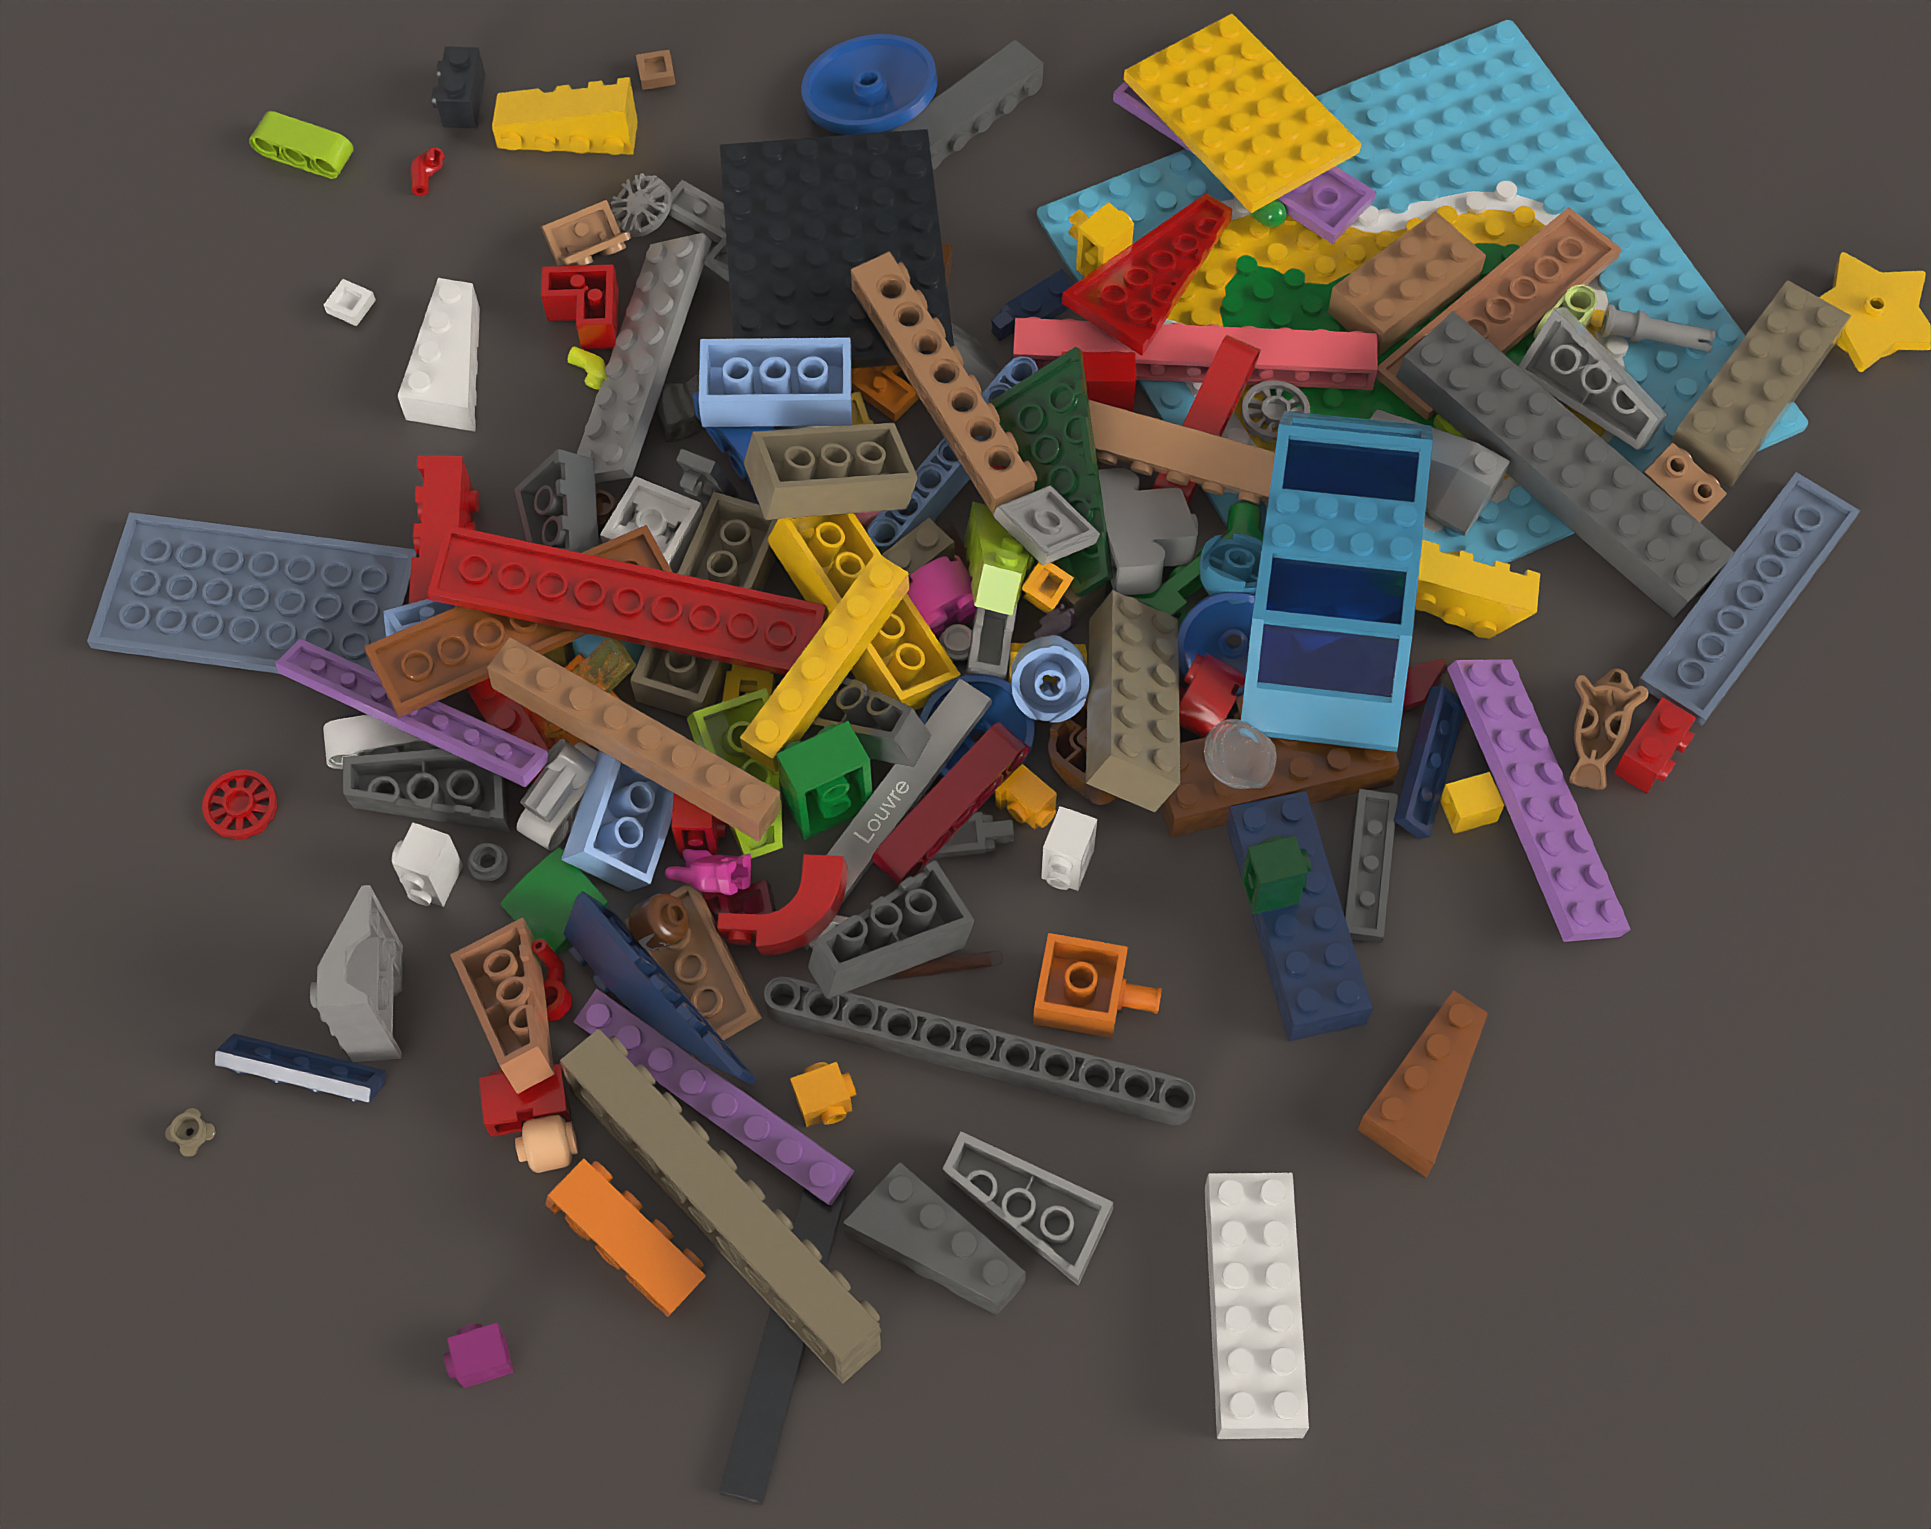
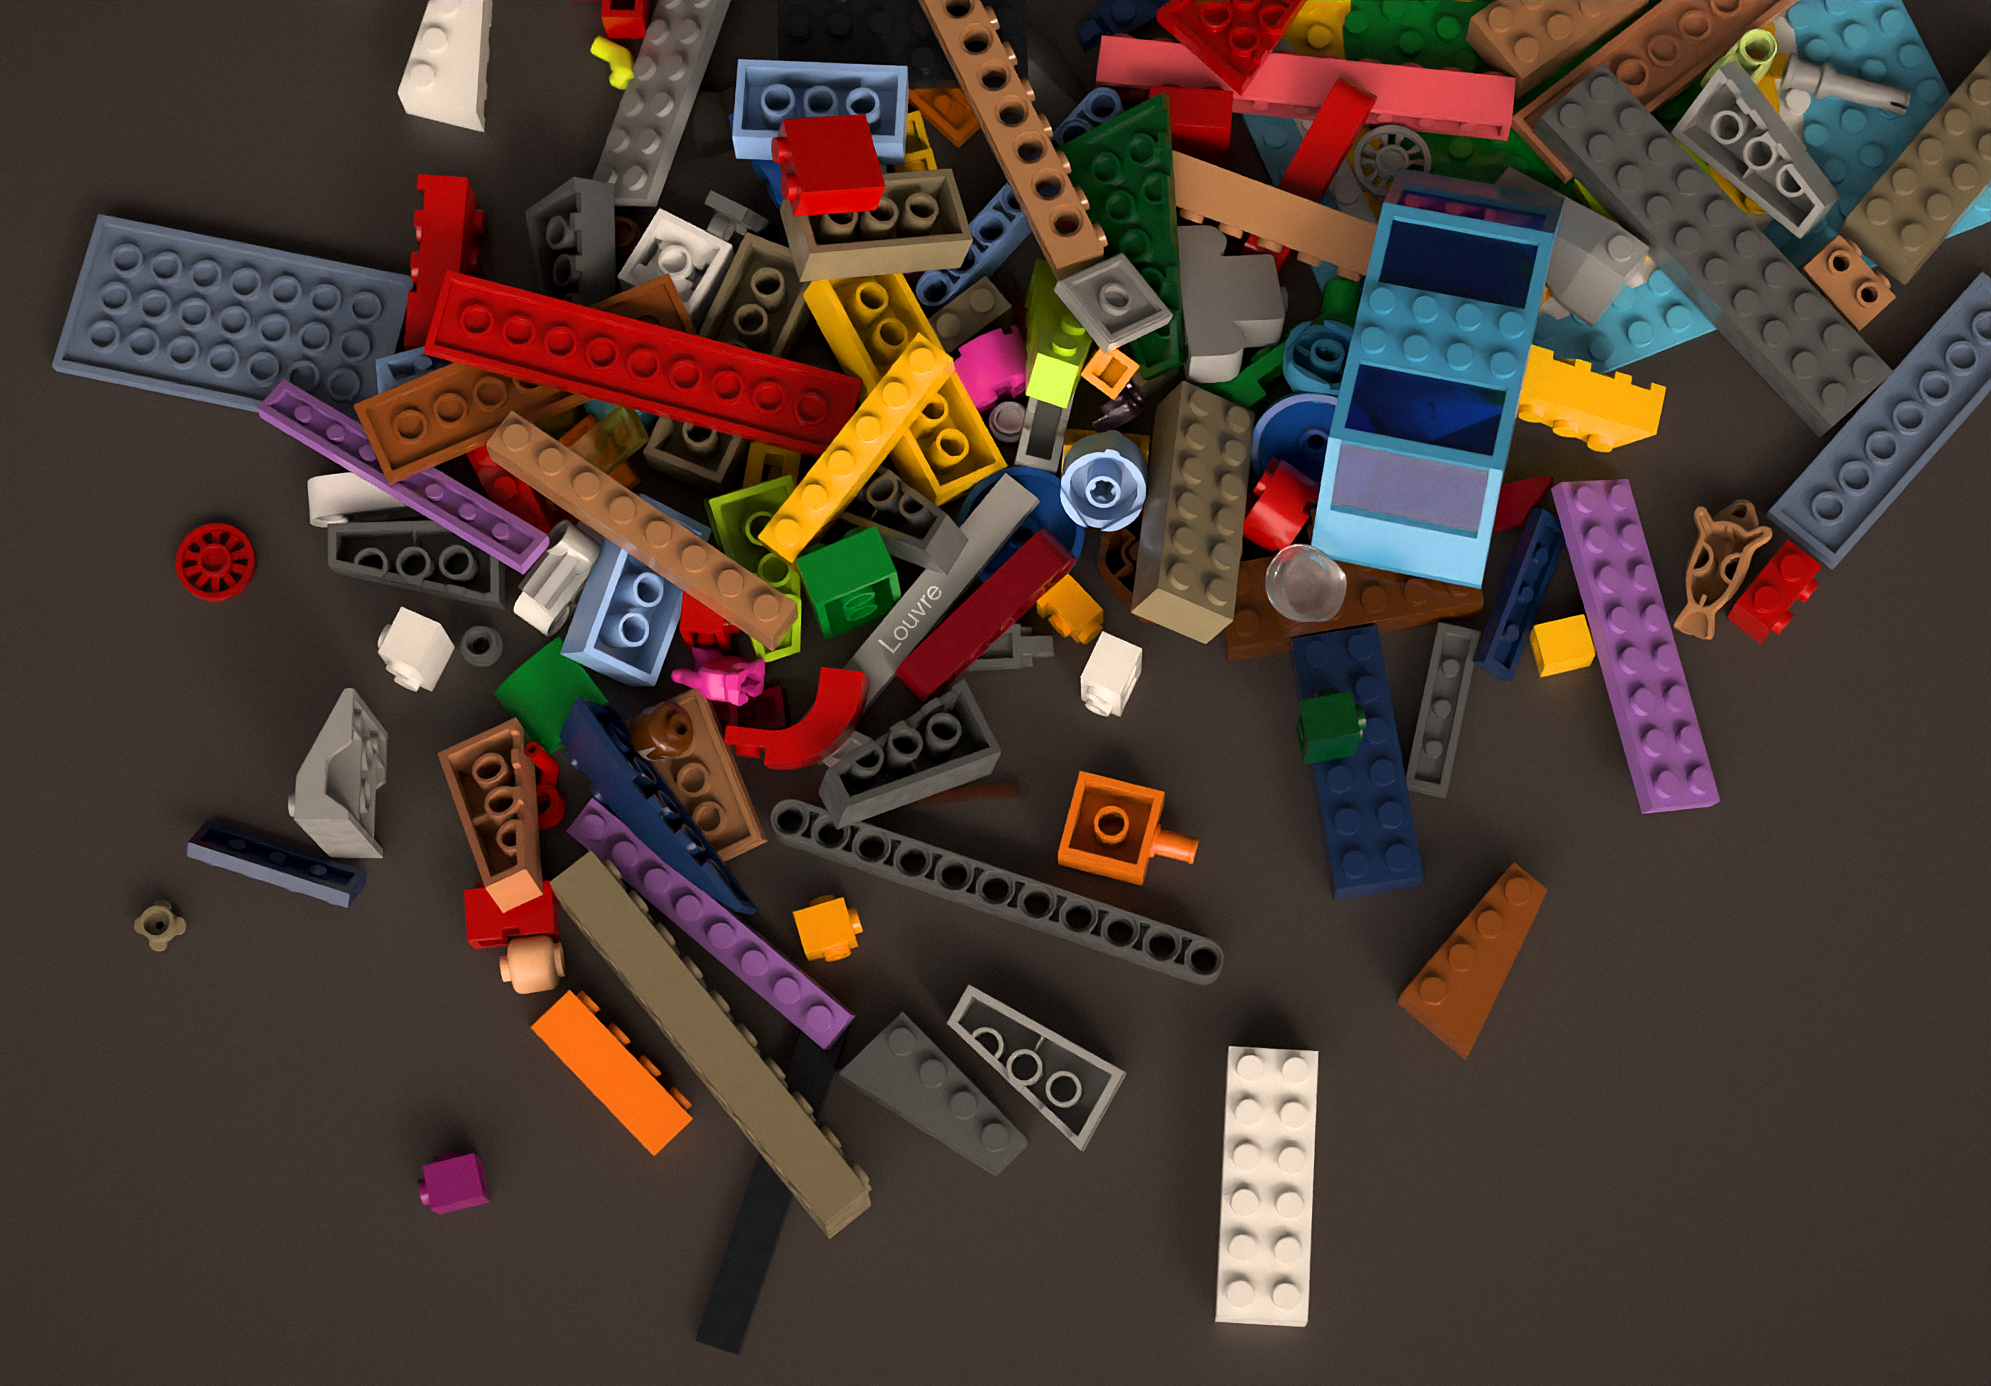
camera: 10 degrees right, 10 degrees up
(787, 413) = (828, 165): none -> red brick

